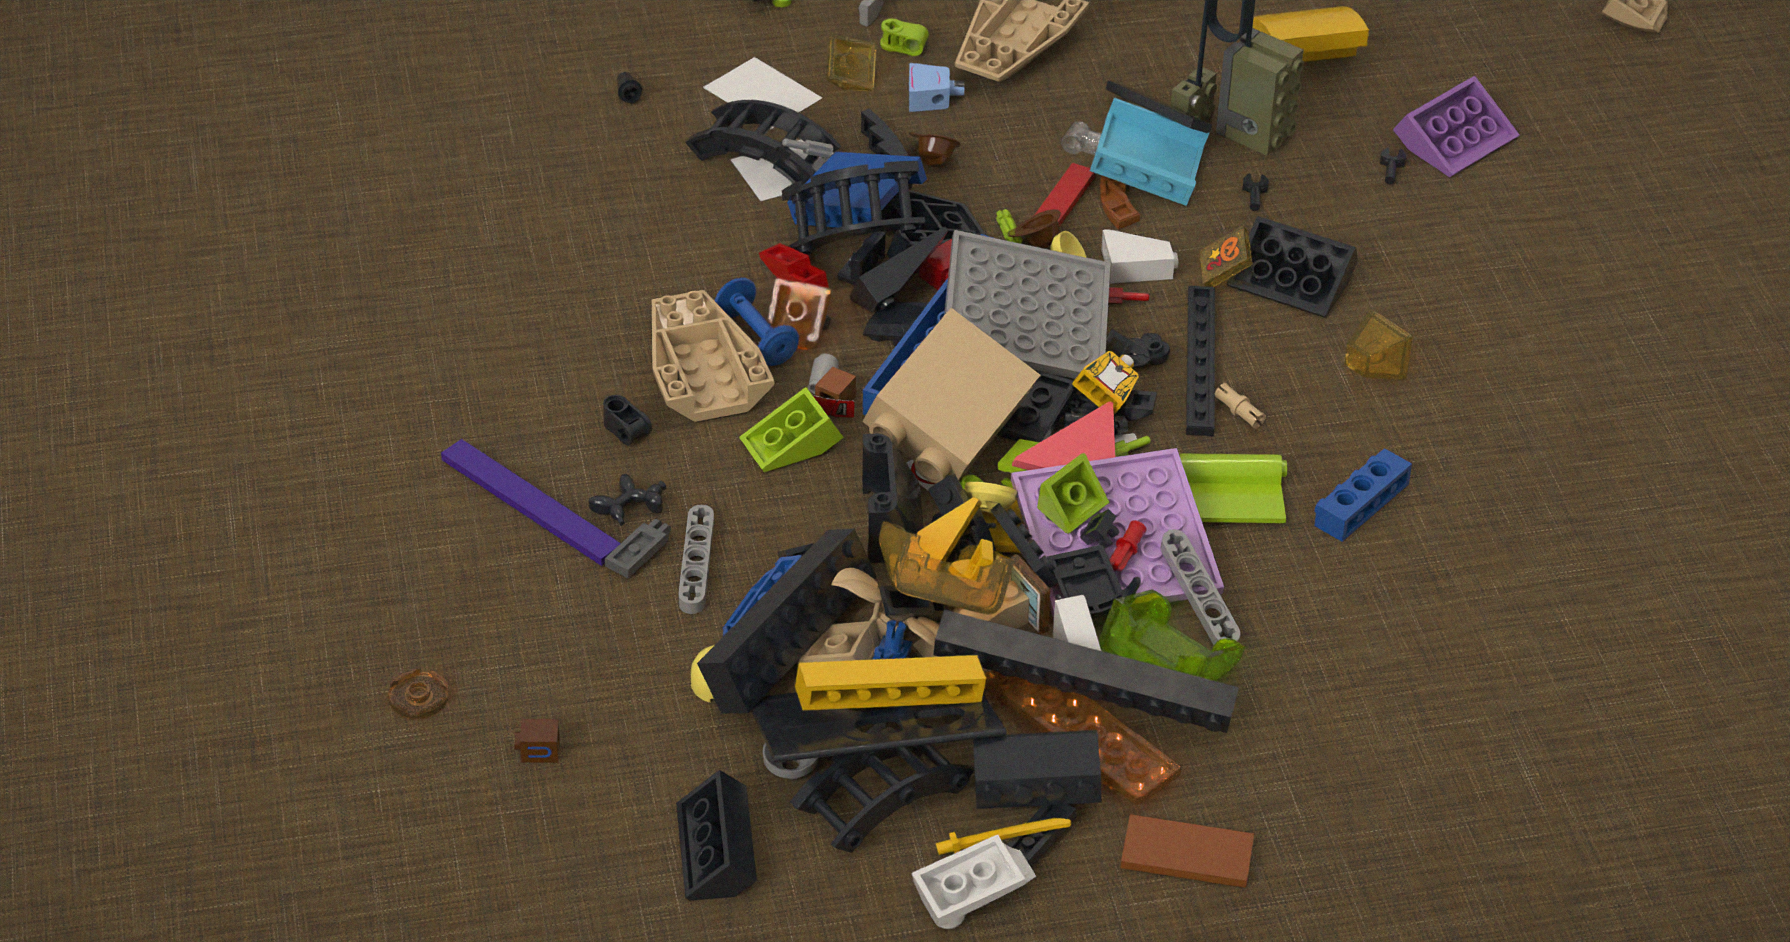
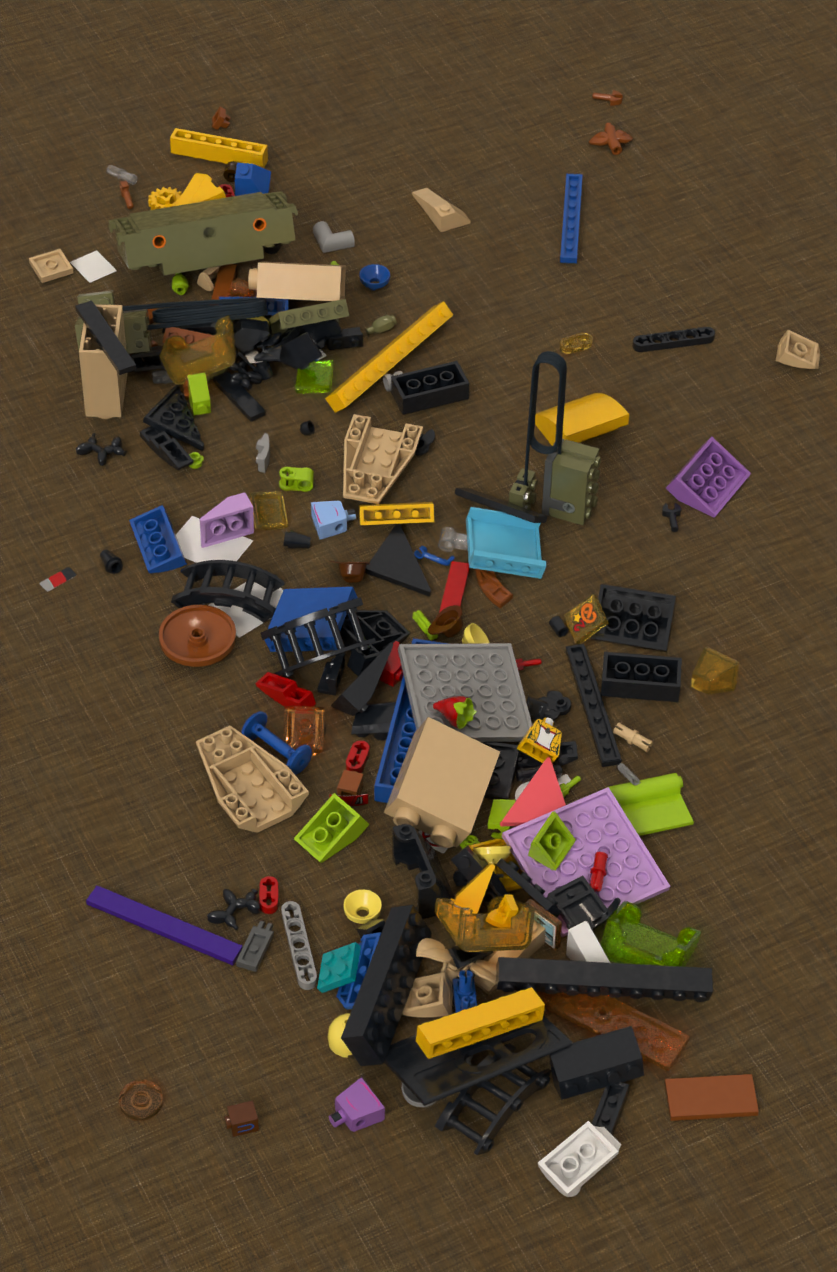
camera: 15 degrees left, 5 degrees up
(555, 96) = (58, 579): none -> sticker
(624, 419) = (209, 843): black piece -> none
(676, 493) = (273, 895): none -> red beam
(693, 757) = (357, 1107): none -> medium lavender torso
(698, 75) = (157, 541): none -> blue slope
(703, 184) = (197, 635): none -> dark orange dish
(716, 839) = (392, 1167): black slope -> none
(735, 590) = (339, 967): none -> teal plate
(791, 65) = (227, 521): none -> lavender slope
(793, 523) = (362, 900): none -> light yellow piece
(811, 147) = (267, 590): light grey axle -> none
(820, 367) = (335, 770): light grey cone -> none
(863, 363) = (360, 758): none -> red beam
(876, 103) = (296, 540): none -> black cone
(881, 137) = (312, 570): black slope -> none
(956, 845) = (564, 1126): yellow sword -> none
(1000, 154) = (398, 564): none -> black tile
(1002, 319) = (457, 710): none -> hat
(1018, 95) = (396, 513): none -> yellow brick
(1040, 148) = (432, 557): none -> blue piece
(1085, 26) = (424, 442): none -> black plate
(1099, 528) = (576, 863): black tile -> none
(1137, 257) = (523, 630): white slope -> none
(1188, 261) = (558, 626): none -> black hinge
(1198, 577) = (653, 883): light grey beam -> none
(1215, 444) = (628, 774): none -> light grey piece
(1255, 189) = (585, 556): black bar -> none
(1275, 336) = (641, 677): none -> black brick
(1362, 494) = (738, 791): blue brick -> none

